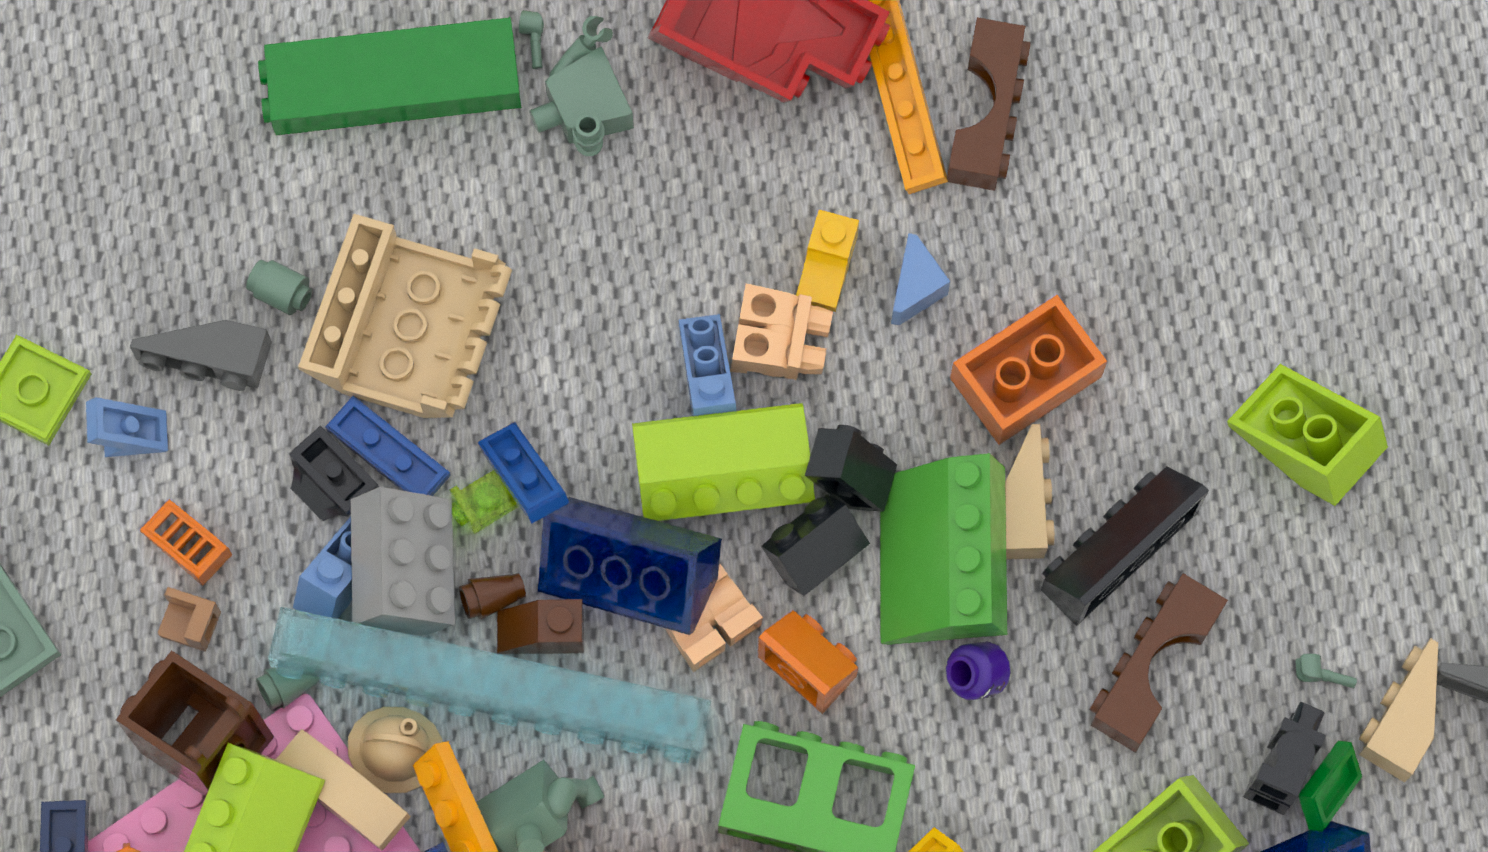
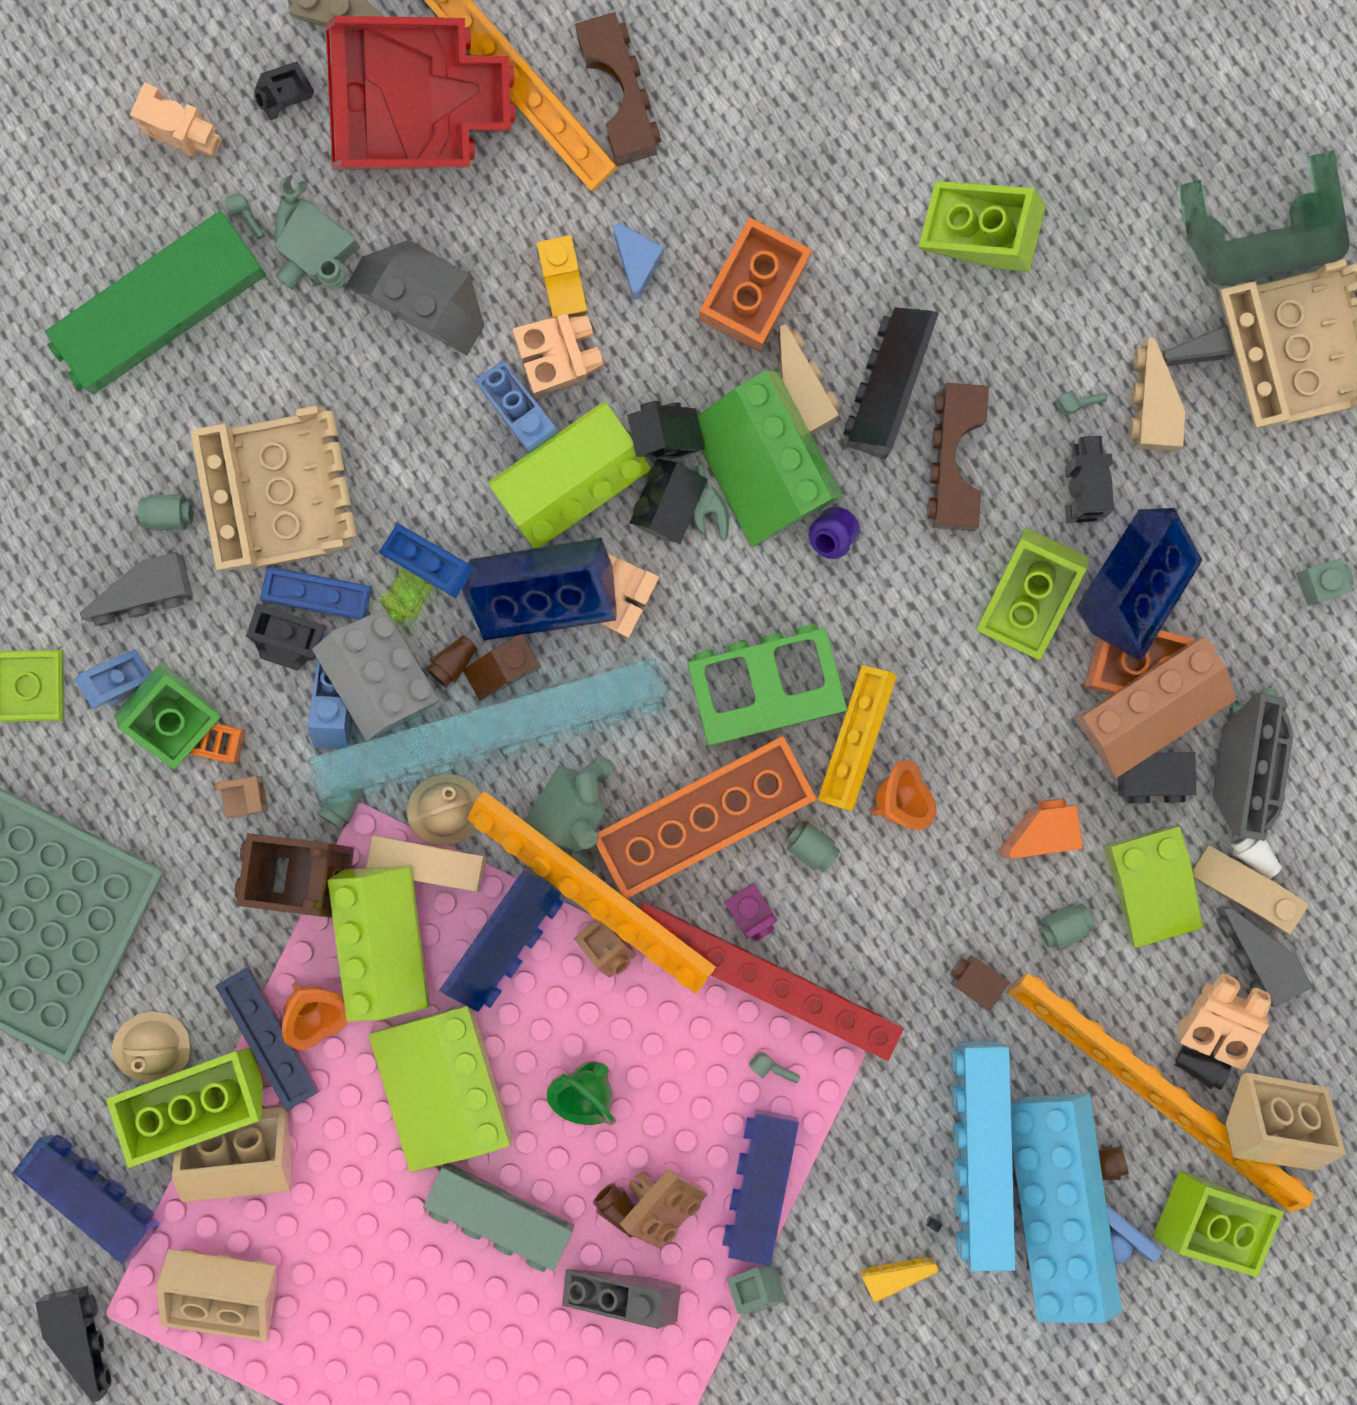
camera: 25 degrees left, 15 degrees up
(158, 493) = (166, 716): none -> bright green slope
(672, 204) = (421, 292): none -> dark grey wedge
(807, 659) = (708, 588): orange slope -> none
(860, 572) = (711, 503): none -> sand green hand
(1330, 786) = (1128, 485): green tile -> none

